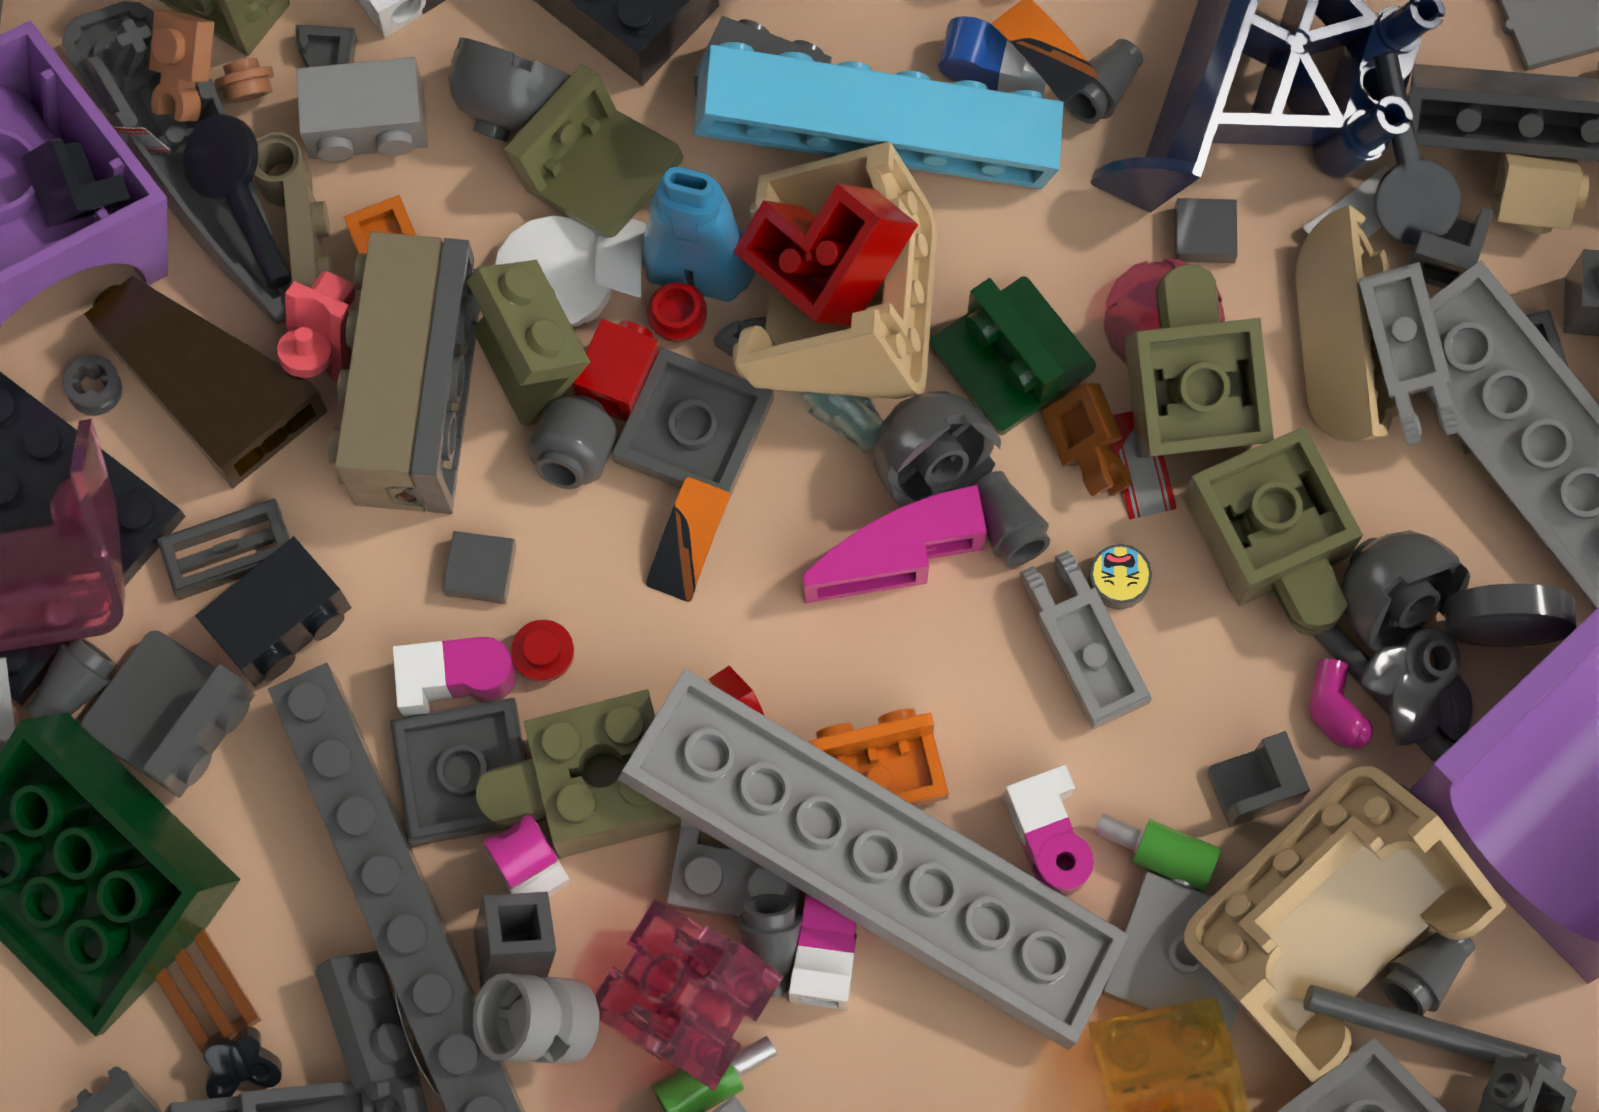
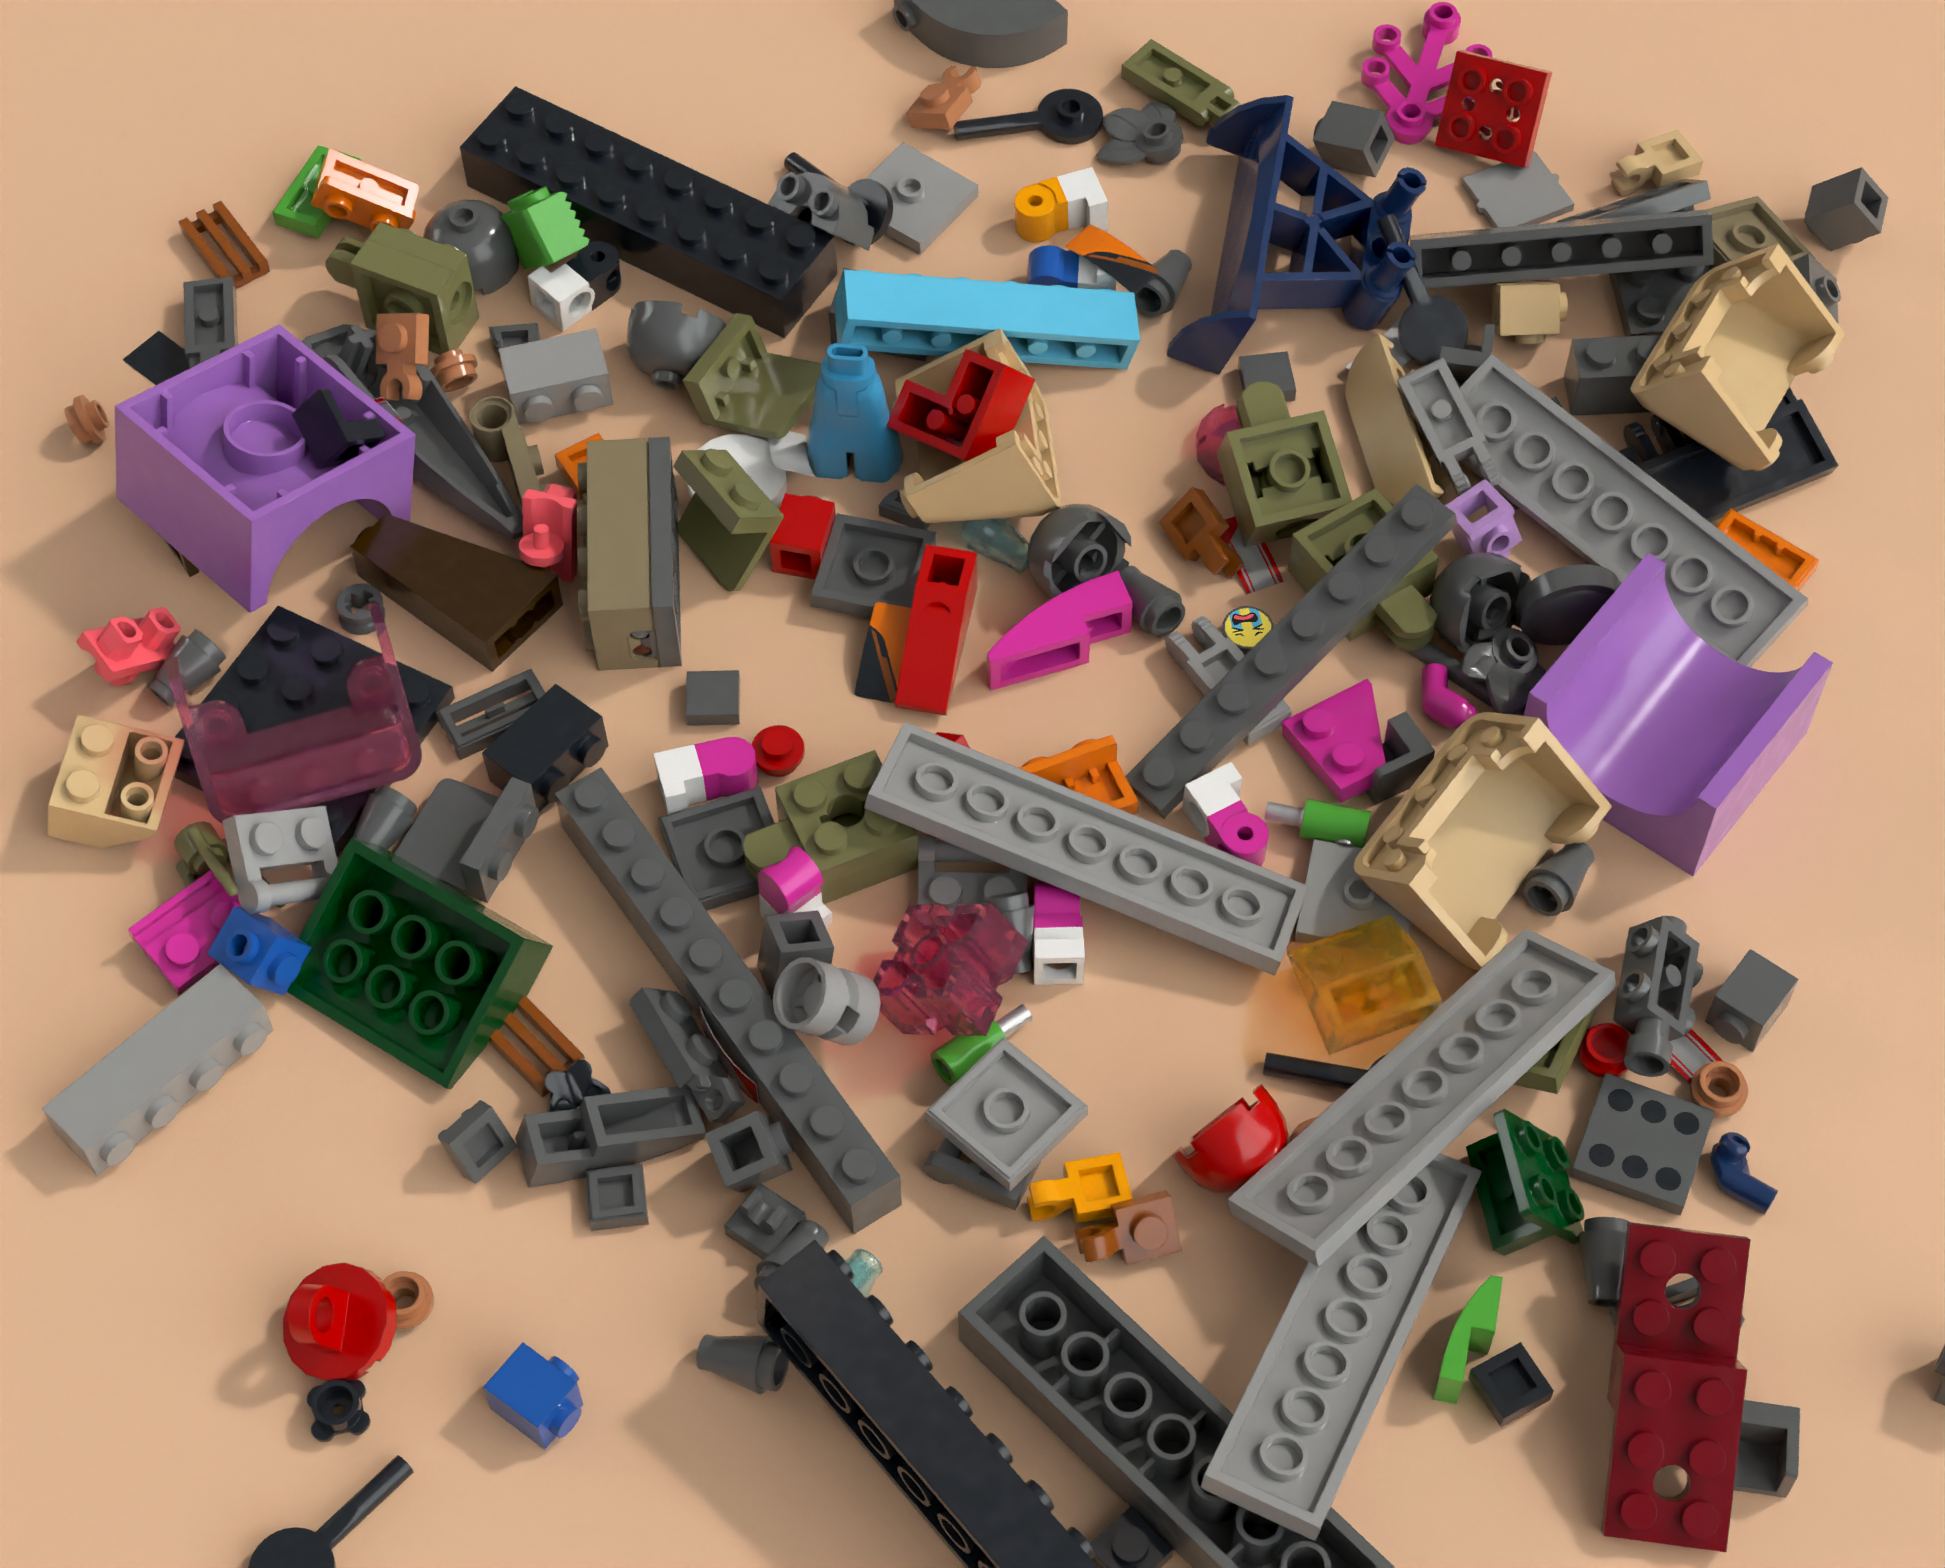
camera: 10 degrees left, 15 degrees down
(220, 165) = (447, 424): black piece -> none
(572, 441) = (775, 591): dark grey head -> none
(677, 312) = (846, 488): red plate -> none
(751, 526) = (937, 629): none -> red slope
(1011, 353) = (1125, 478): dark green bracket -> none
(1165, 628) = (1291, 649): none -> dark grey plate
(1204, 743) = (1340, 740): none -> dark pink wing
(1415, 1026) = (1547, 916): dark grey bar -> none
(1432, 496) = (1491, 533): none -> lavender brick

